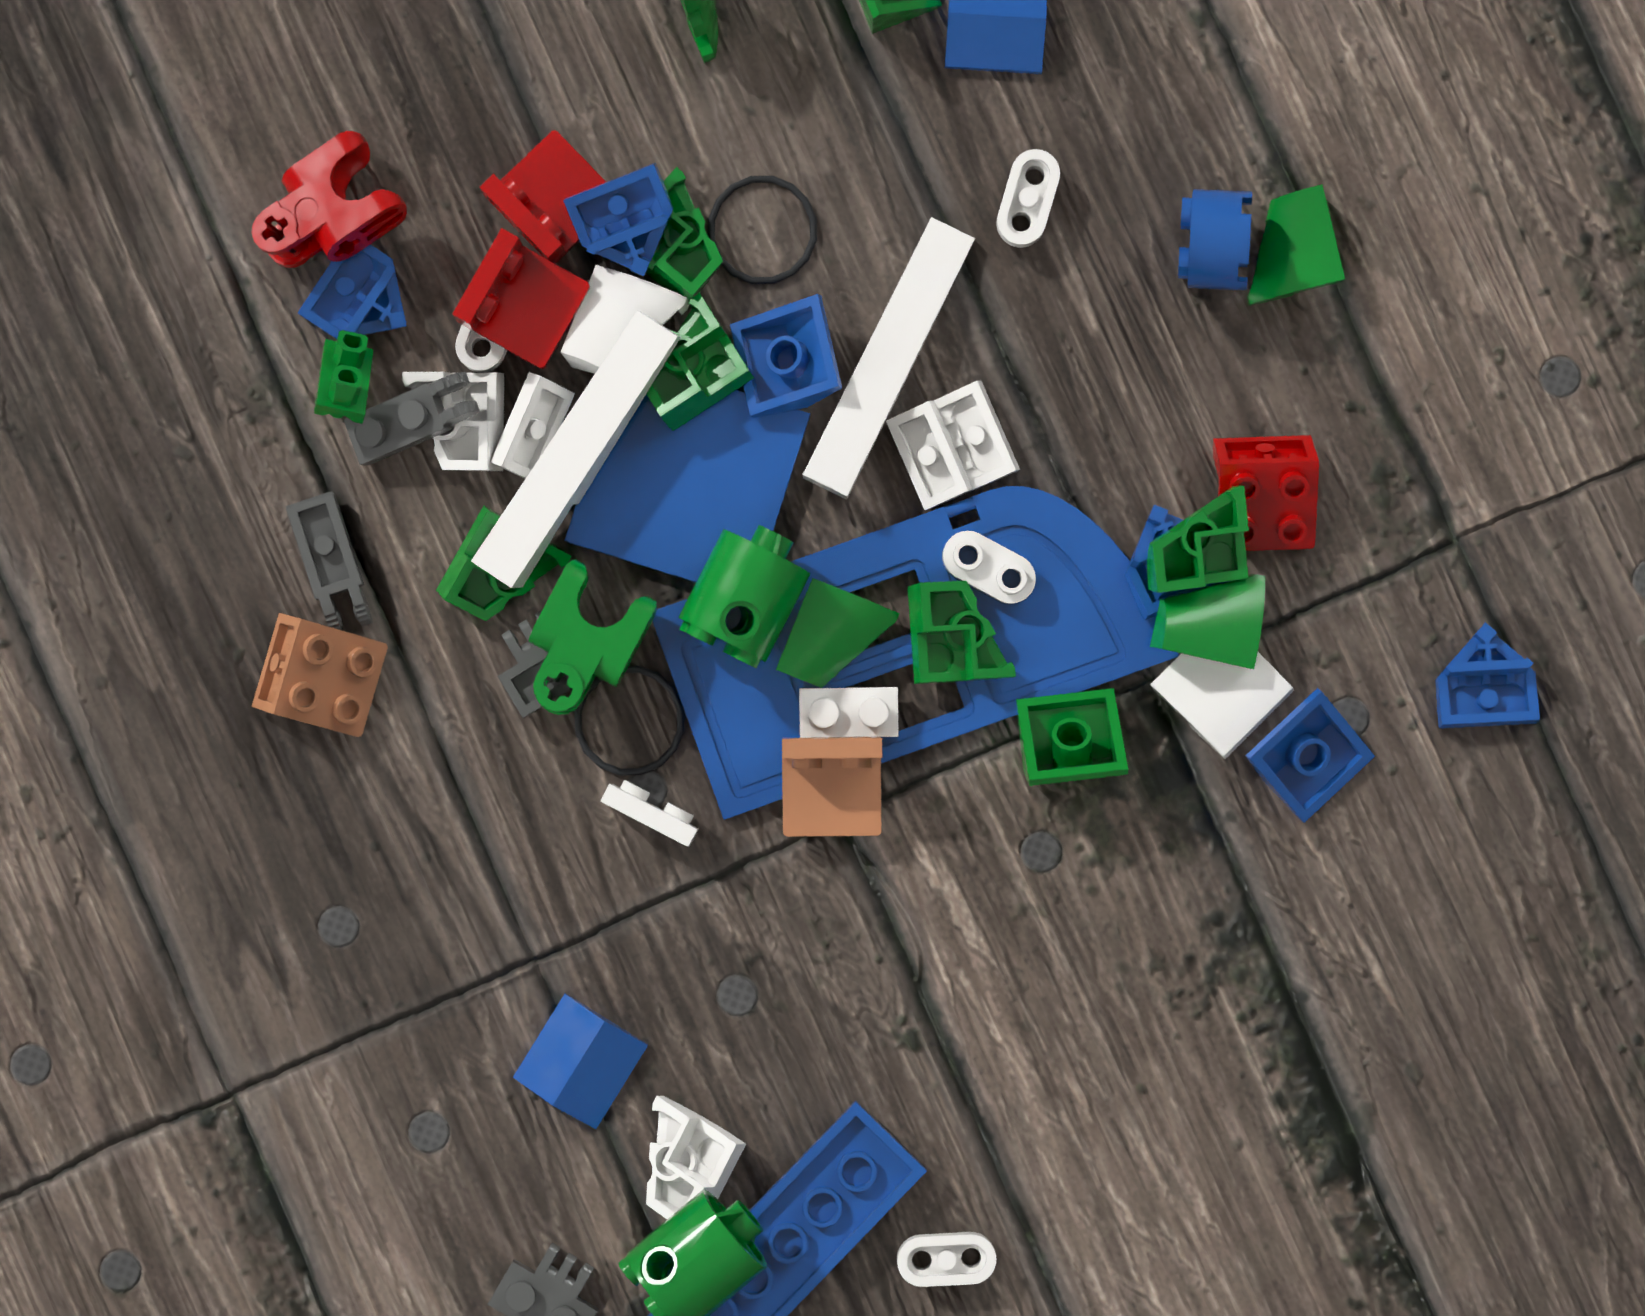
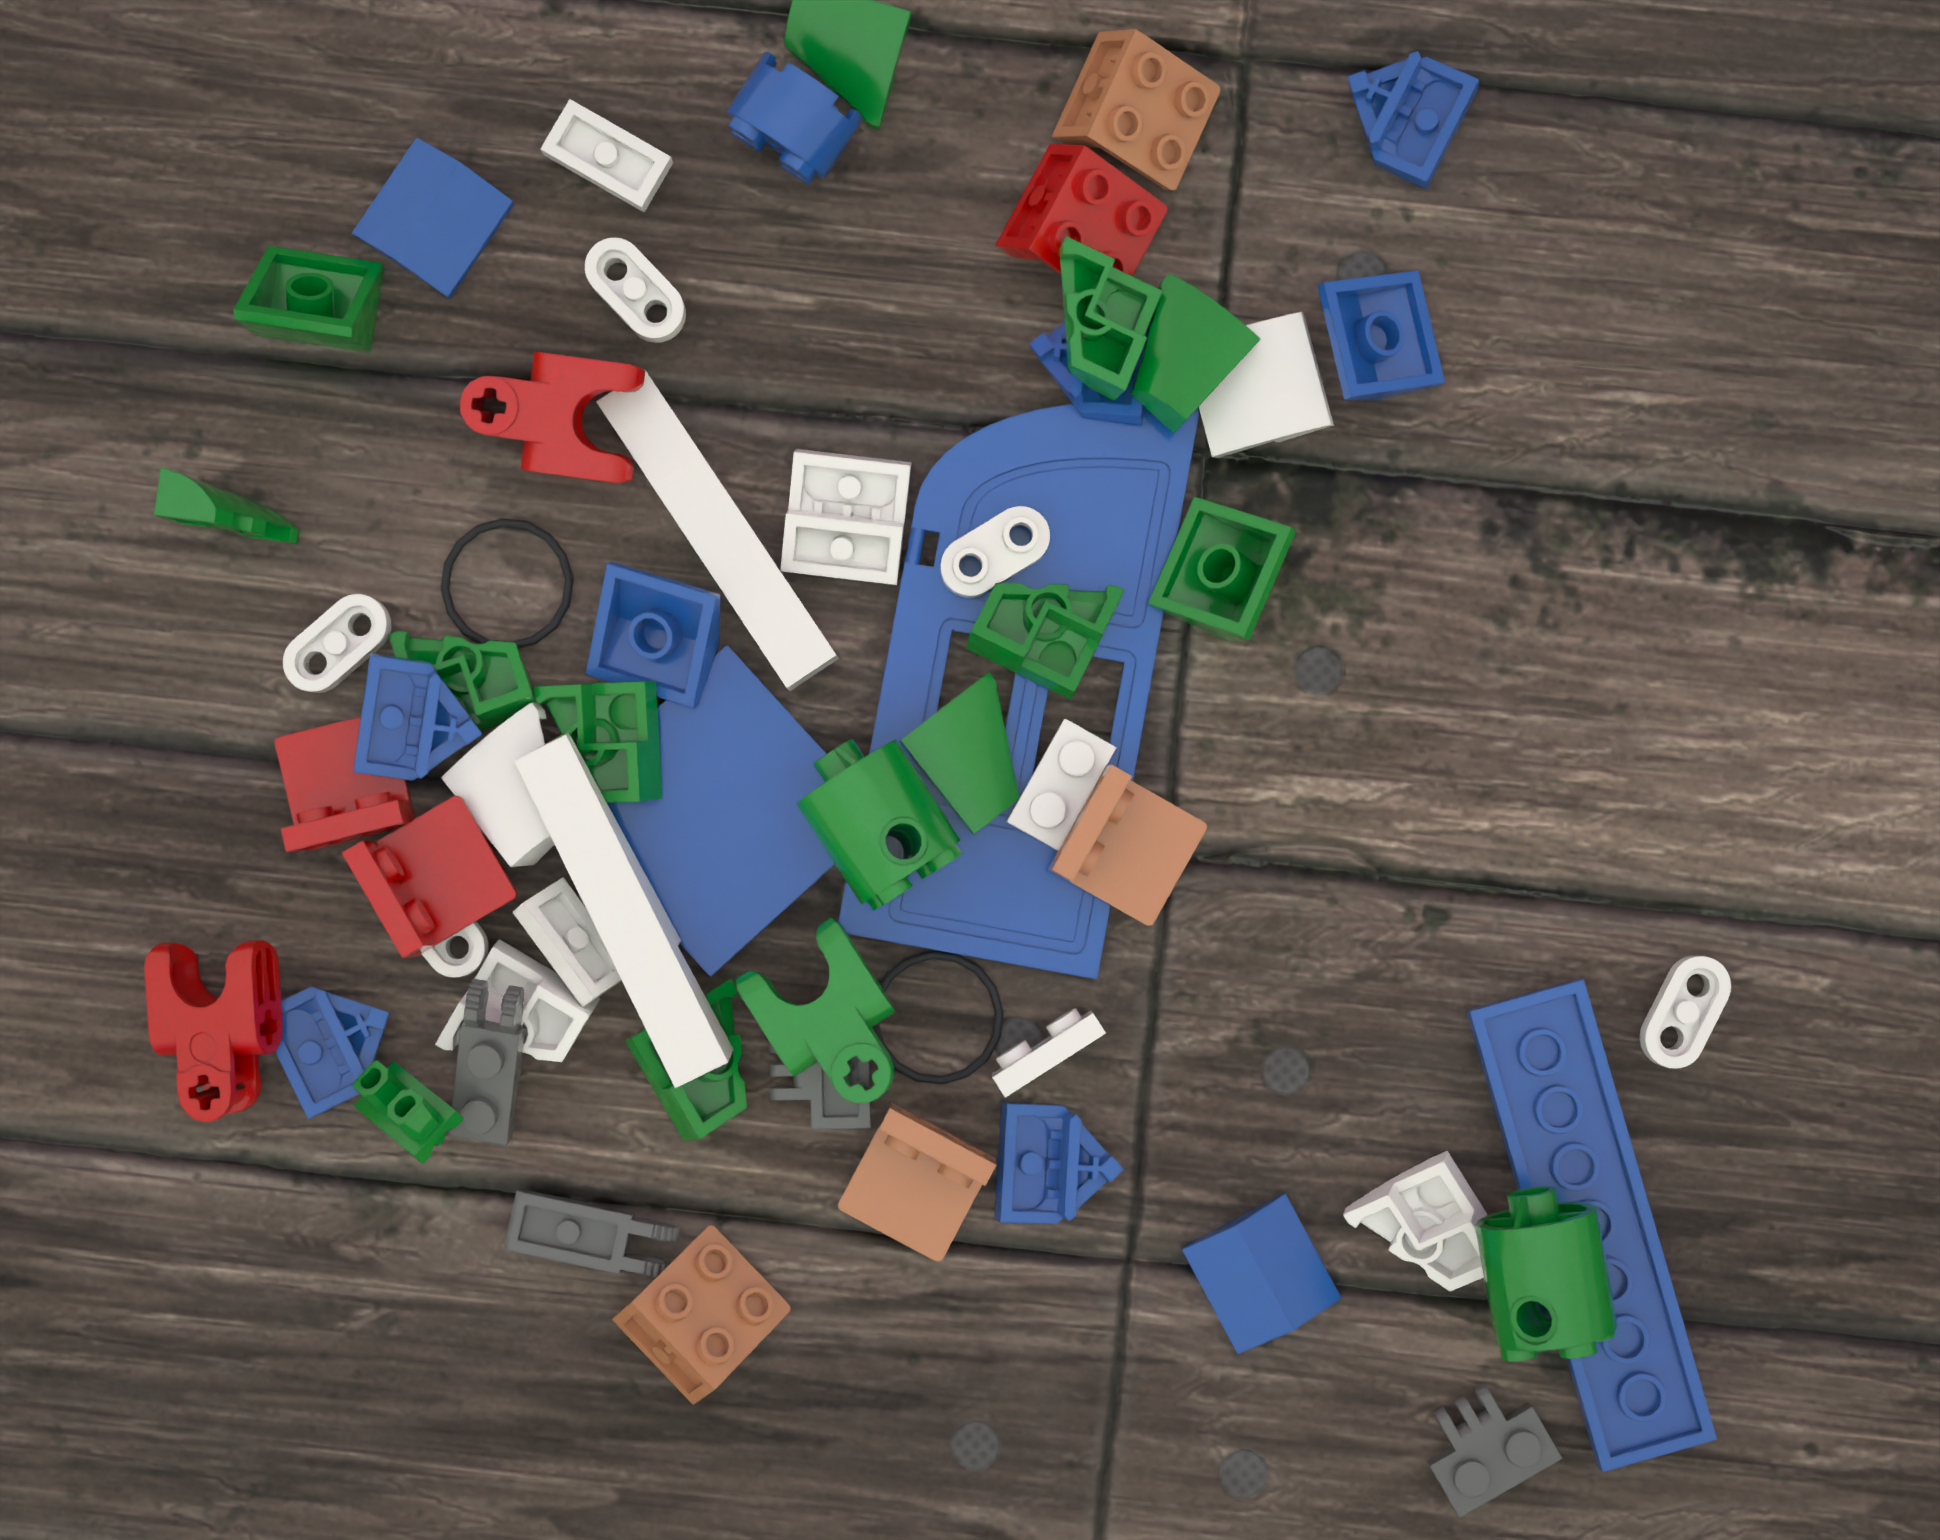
camera: 60 degrees left, 0 degrees up
(502, 774) = (916, 1182): none -> nougat bracket
(569, 860) = (1046, 1164): none -> blue slope
(649, 134) = (336, 640): none -> white plate
(903, 188) = (550, 414): none -> piece
(1113, 120) = (606, 155): none -> white plate
(1374, 484) = (1138, 106): none -> nougat bracket

